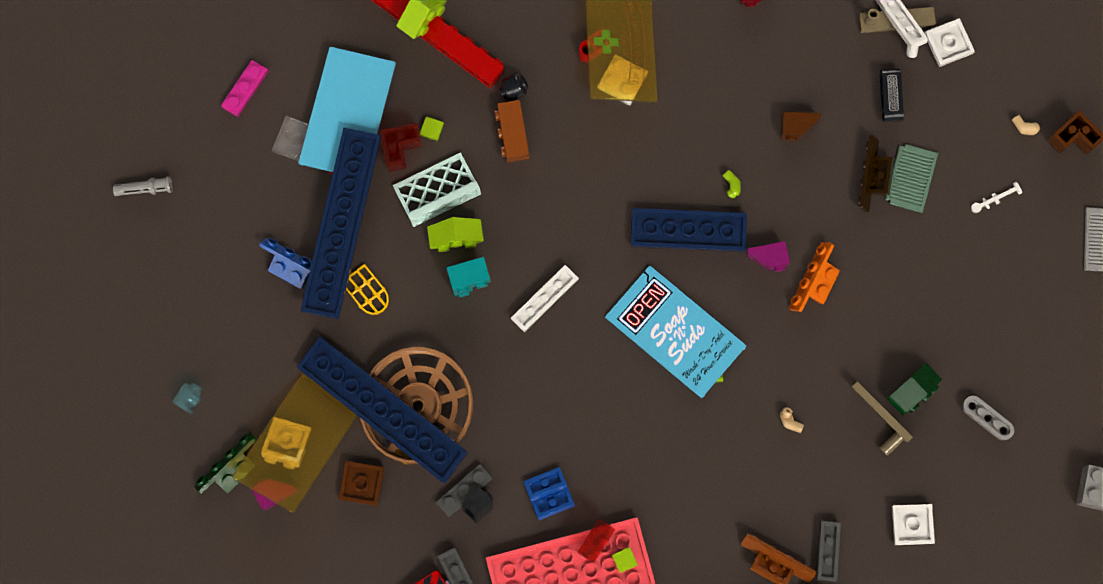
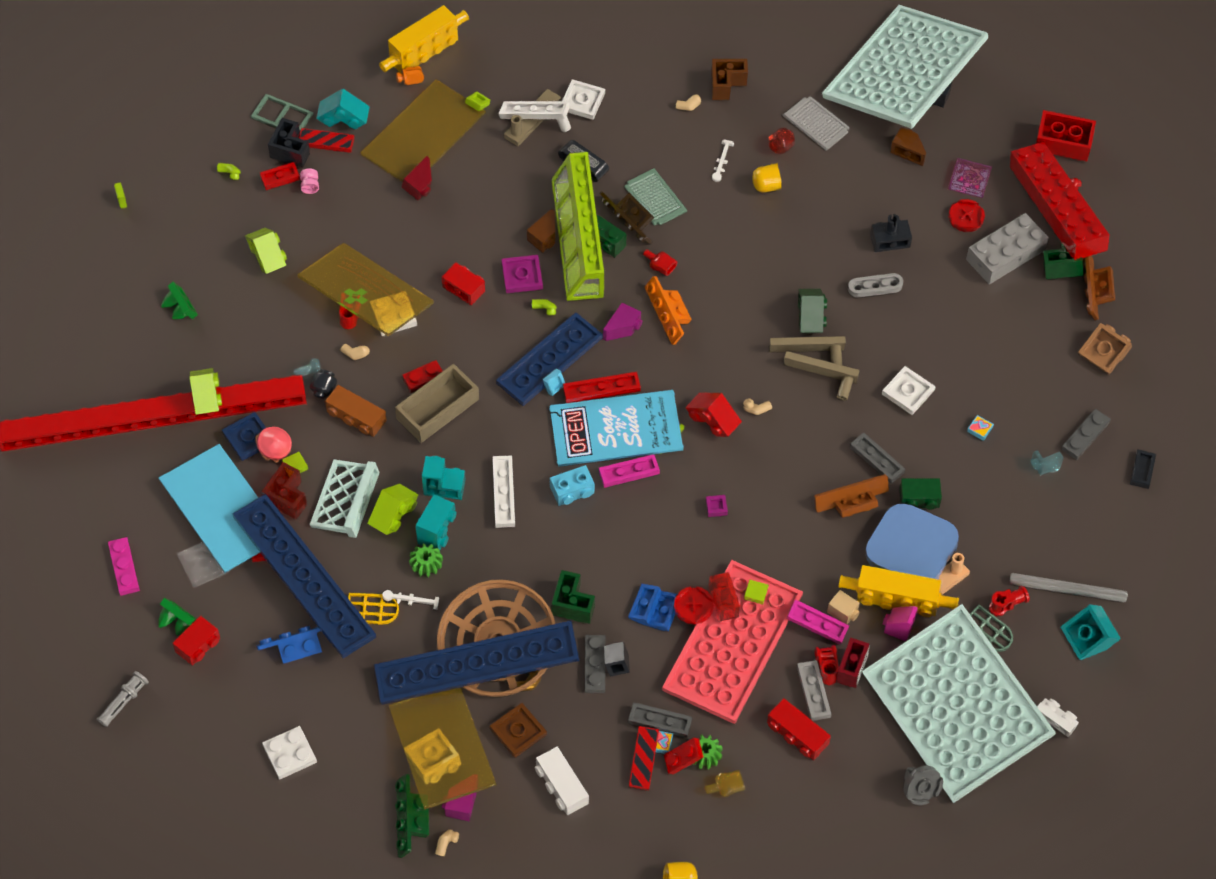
camera: 50 degrees left, 20 degrees down
(188, 397) = (324, 801): clear light blue brick -> none
(205, 338) = (289, 752): none -> white plate
(230, 195) = (196, 640): none -> red brick
(230, 508) = (444, 840): none -> tan arm
(241, 166) = (170, 612): none -> green tile
(347, 550) = (561, 781): none -> white brick
(385, 293) = (388, 595): none -> white piece
(423, 75) = (242, 435): none -> dark blue plate
(429, 297) = (430, 554): none -> bright green gear
(431, 99) = (273, 443): none -> coral hair
(492, 429) = (570, 602): none -> dark green brick
(509, 245) = (442, 480): none -> teal brick
(516, 64) = (314, 366): none -> clear light blue arm
(563, 85) = (355, 353): none -> tan arm
(571, 184) = (437, 403): none -> dark tan piece
(572, 523) = (693, 605): none -> red tile
(589, 151) = (419, 377): none -> red plate
(594, 345) = (572, 485): none -> medium azure brick
(645, 374) = (629, 470): none -> dark pink plate
(670, 252) = (554, 382): none -> medium azure tile
(675, 465) = (716, 506): none -> magenta plate
(695, 107) = (463, 283): none -> red brick
(699, 290) = (601, 387): none -> red plate
(744, 142) = (522, 274): none -> magenta plate
(751, 395) = (715, 411): none -> red brick
(820, 148) = (578, 229): none -> lime window
(836, 174) = (611, 238): none -> dark green brick
(854, 235) = (661, 262): none -> red piece
(881, 466) = (845, 374): none -> dark tan piece
(1008, 250) = (767, 178): none -> yellow helmet
(1046, 390) = (891, 235): none -> black brick
(1056, 229) = (781, 140): none -> clear red head

